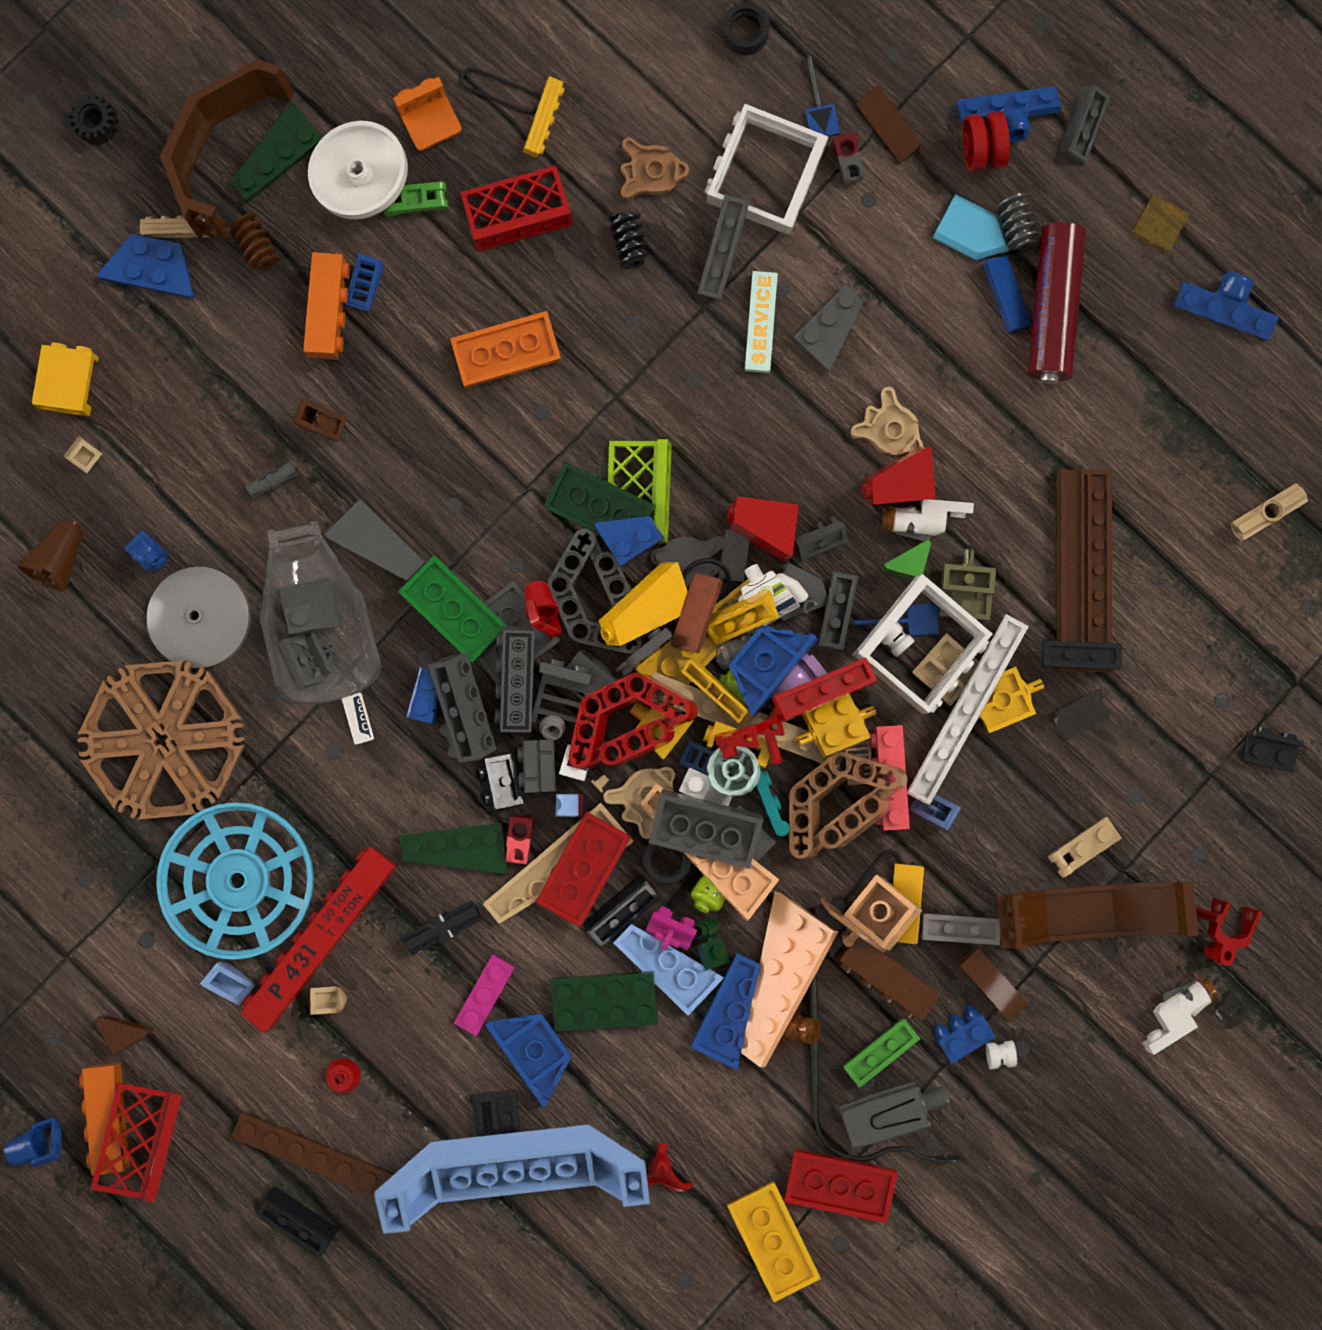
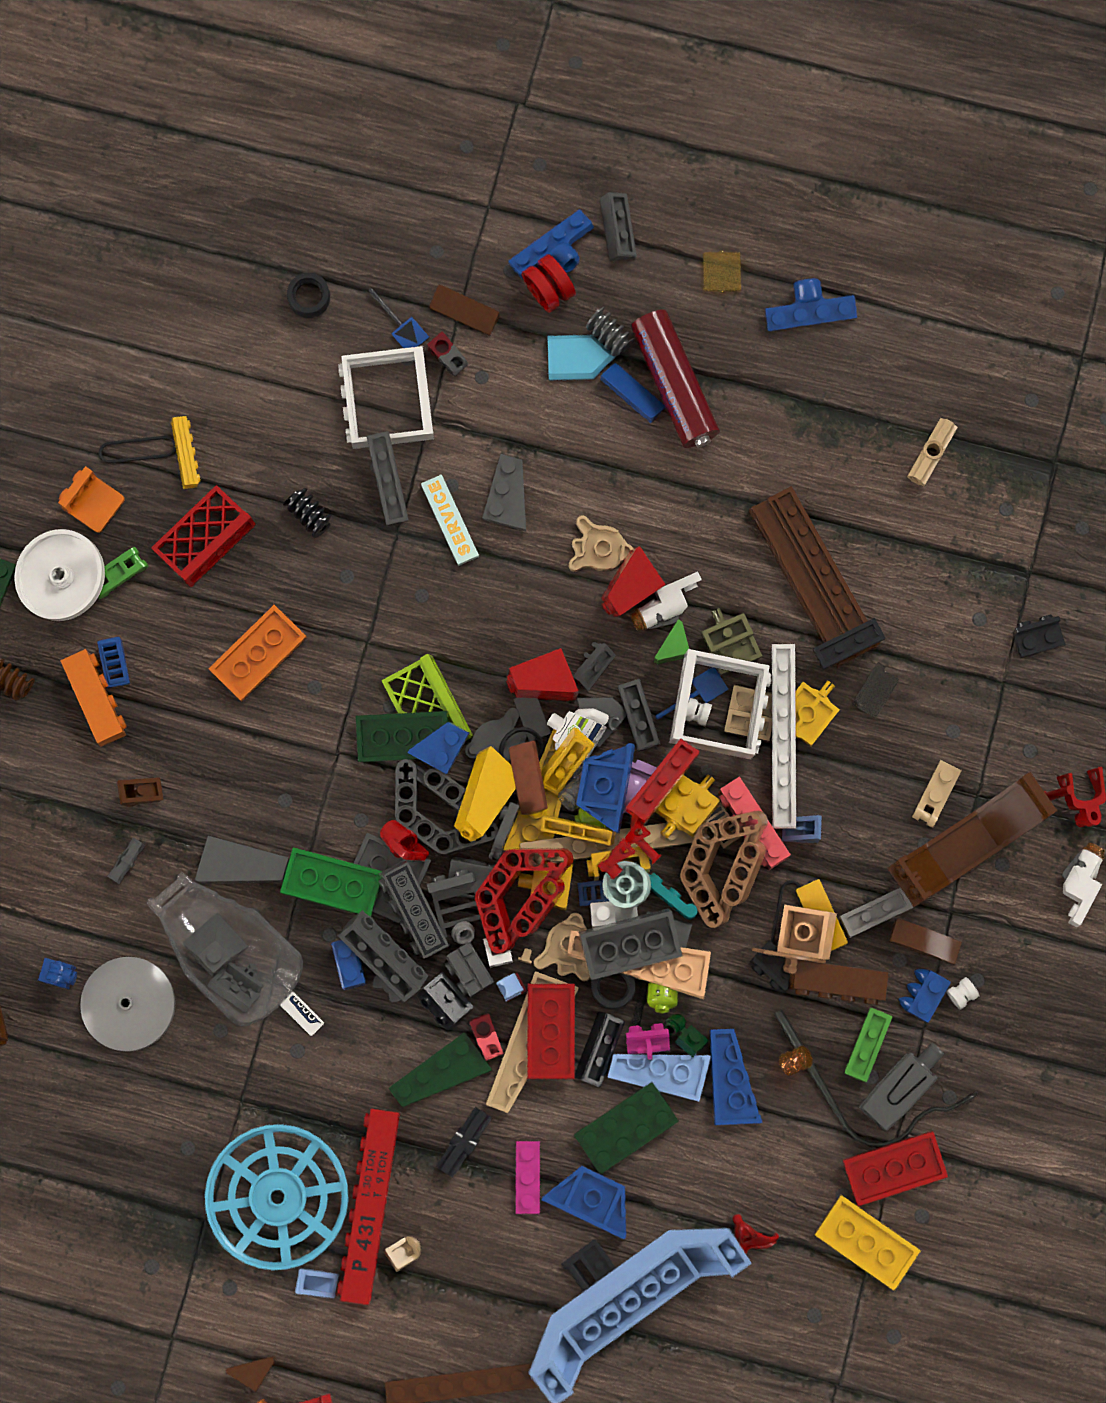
camera: 25 degrees left, 5 degrees down
(138, 742) = (153, 1140): medium nougat plate -> none
(347, 1074) = (456, 1312): red cone -> none
(651, 170) = (295, 447): medium nougat tile -> none
(789, 960) = (754, 1010): light nougat wing -> none

